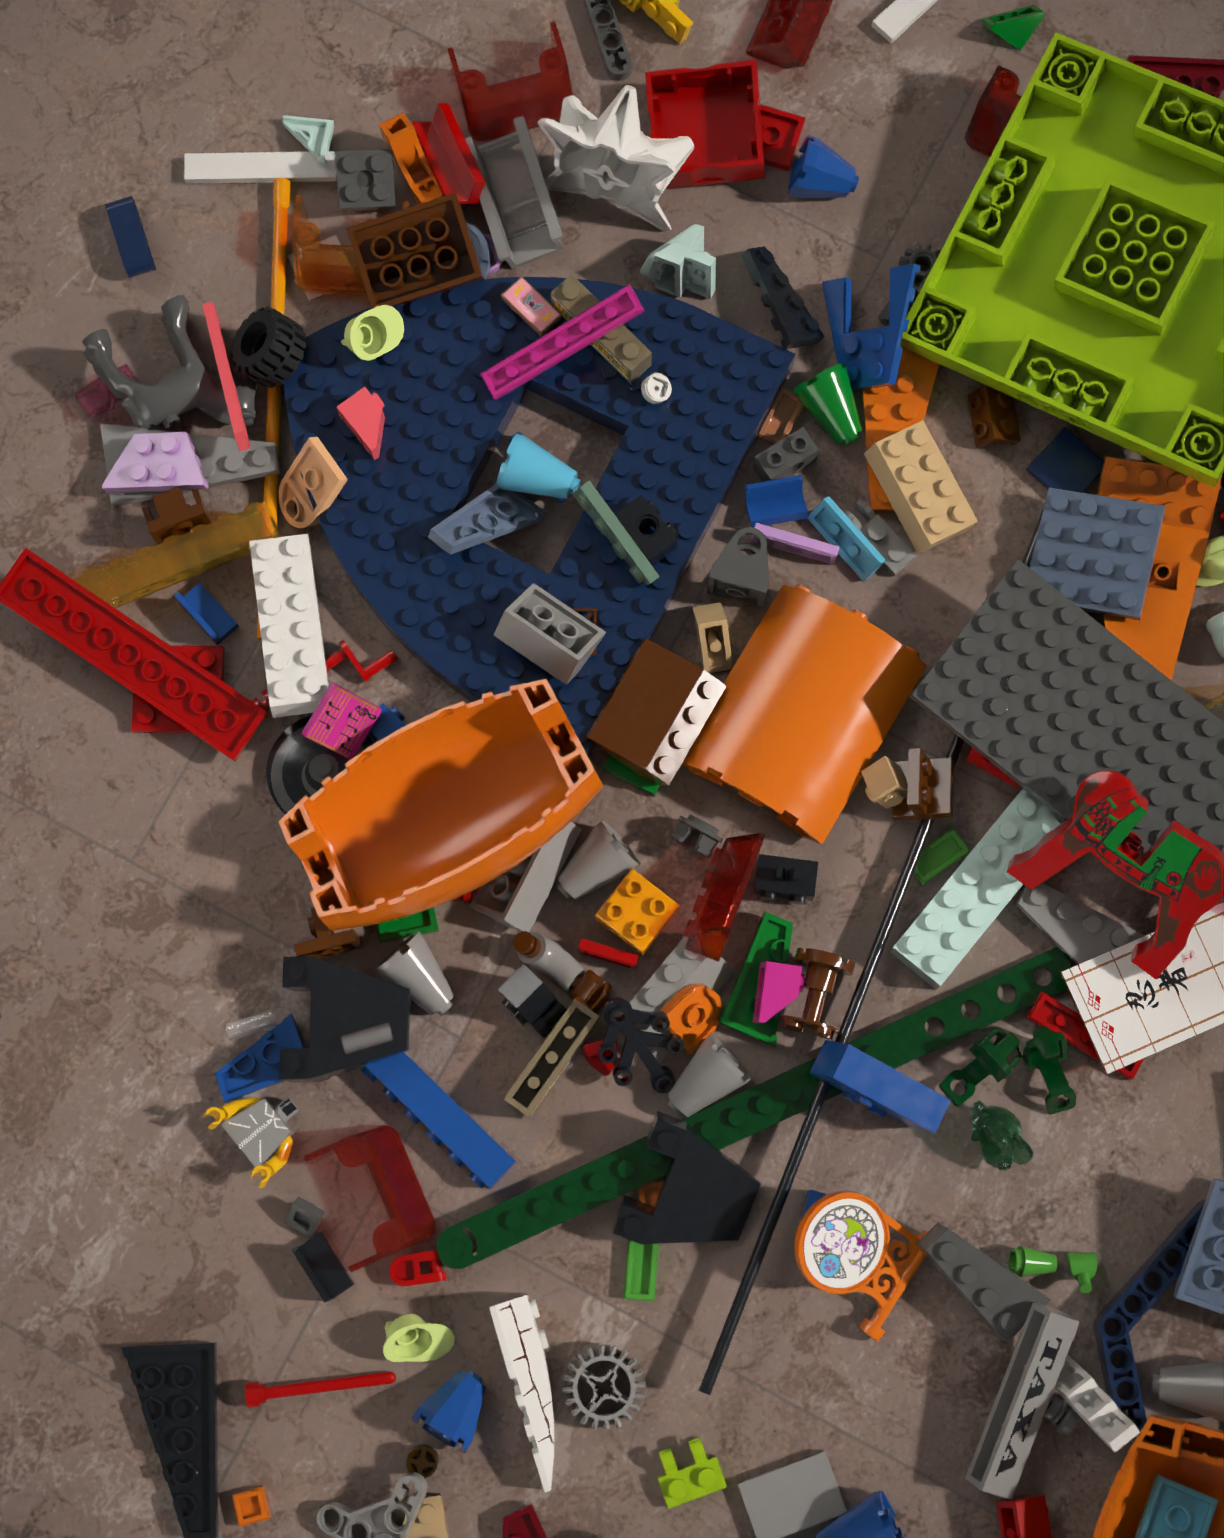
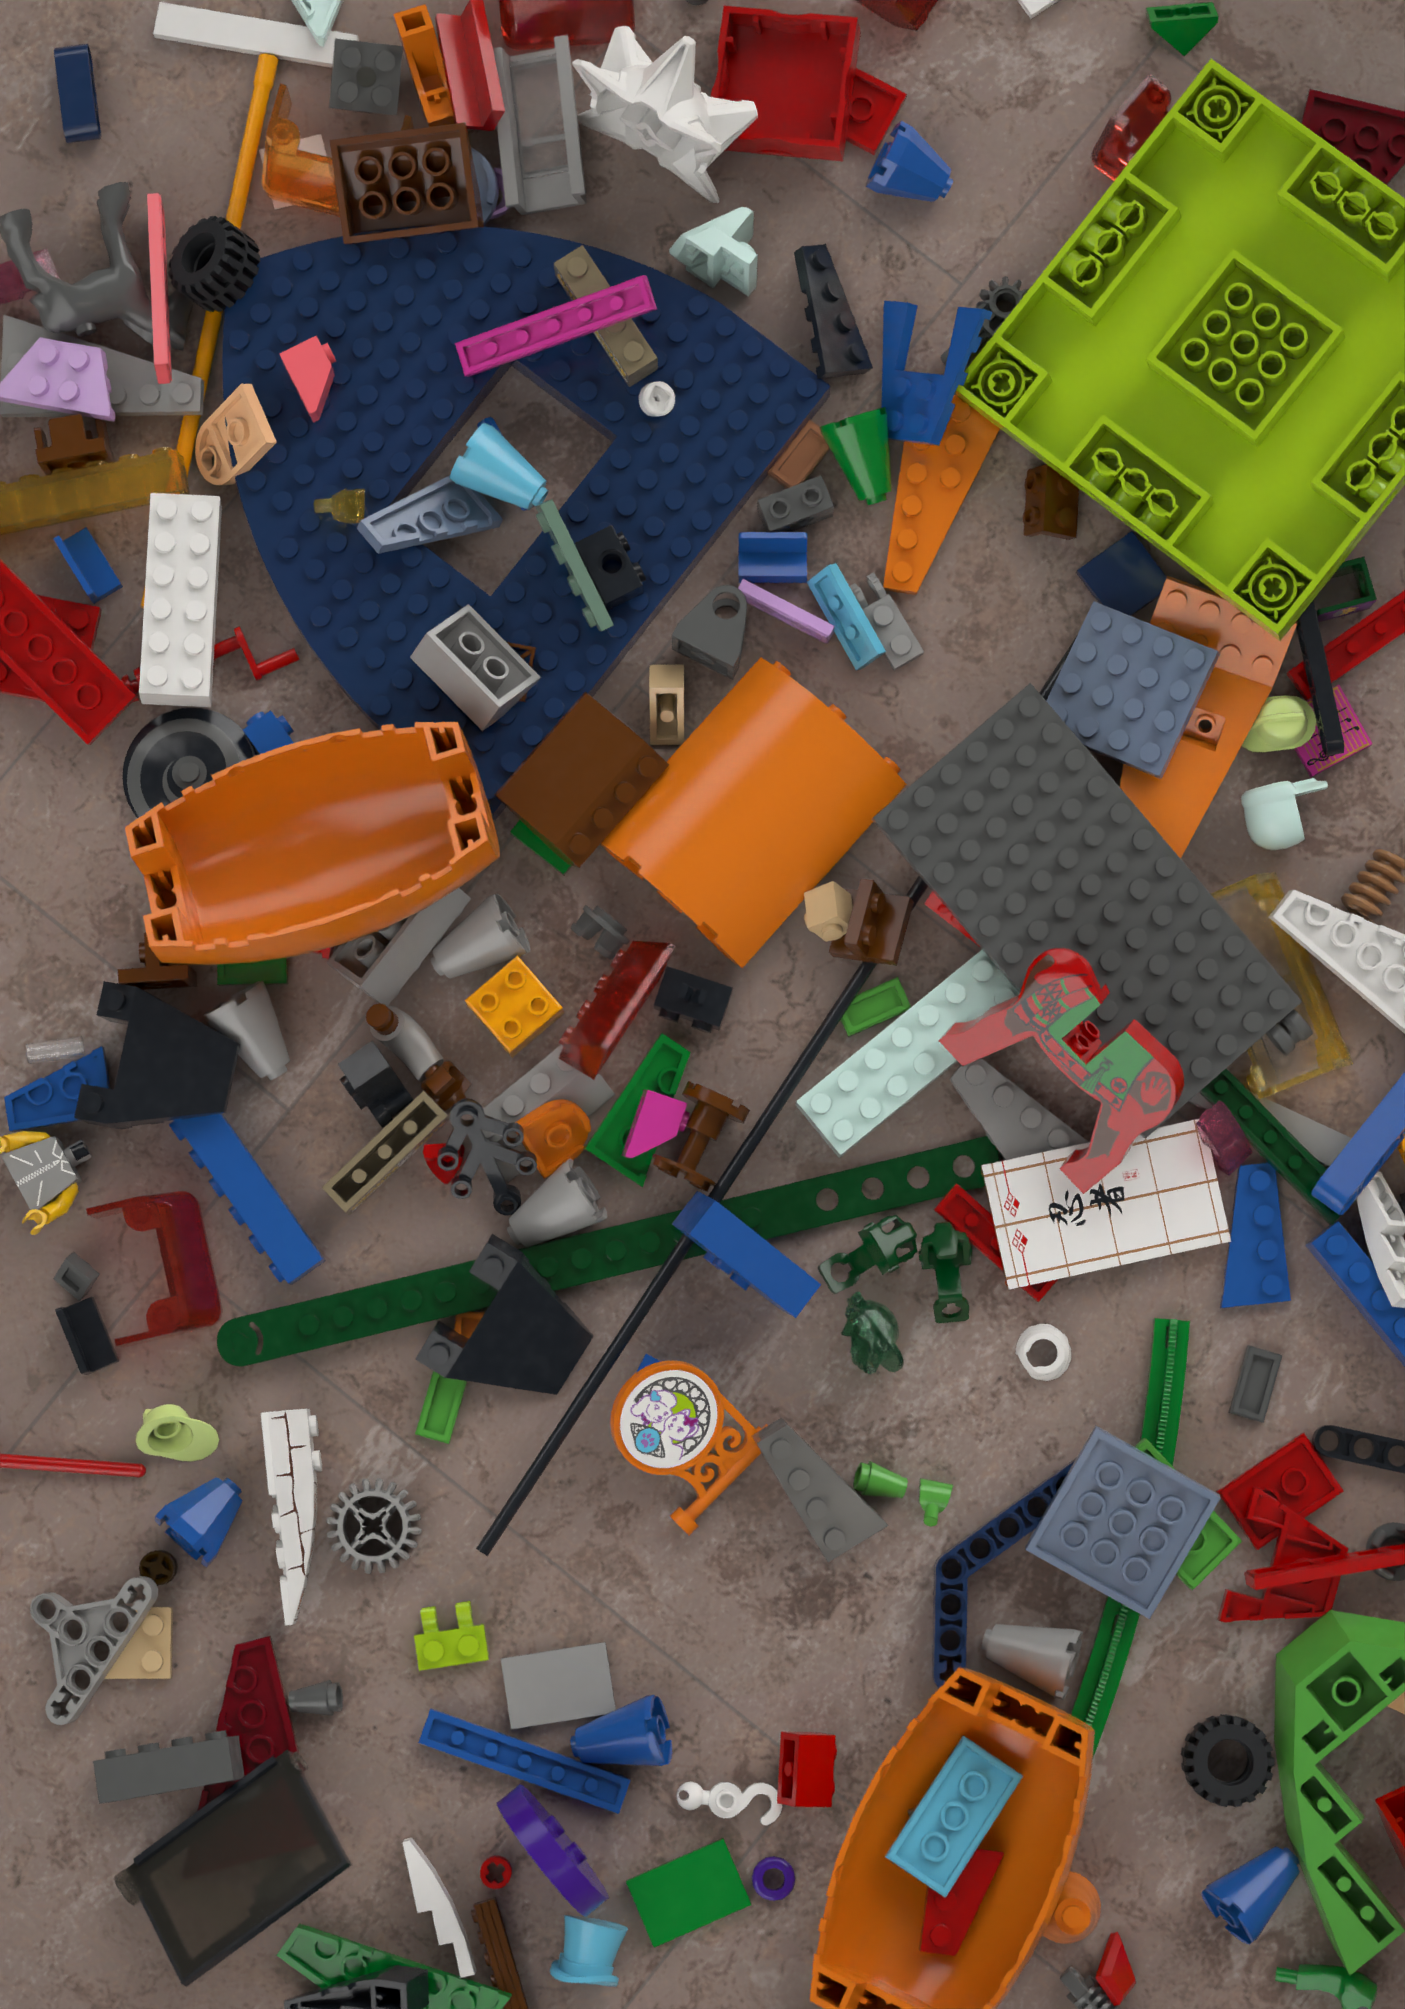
camera: 10 degrees right, 5 degrees up
(341, 721) = (218, 724): dark pink tile -> none
(367, 1038) = (180, 1090): clear axle -> none
(374, 332) = (340, 271): yellowish green piece -> none
(407, 1271) = (179, 1357): red plate -> none
(414, 522) = (344, 505): none -> clear yellow piece
(531, 306) = (530, 272): tile -> none
(608, 954) = (473, 1047): red tile -> none
(920, 487) = (943, 572): tan brick -> none
(1022, 1400) = (832, 1628): light grey brick -> none
(1061, 1415) = (867, 1647): dark grey wheel -> none
(1094, 1406) = (904, 1642): white slope -> none
(1129, 1116) = (1049, 1332): none -> white piece

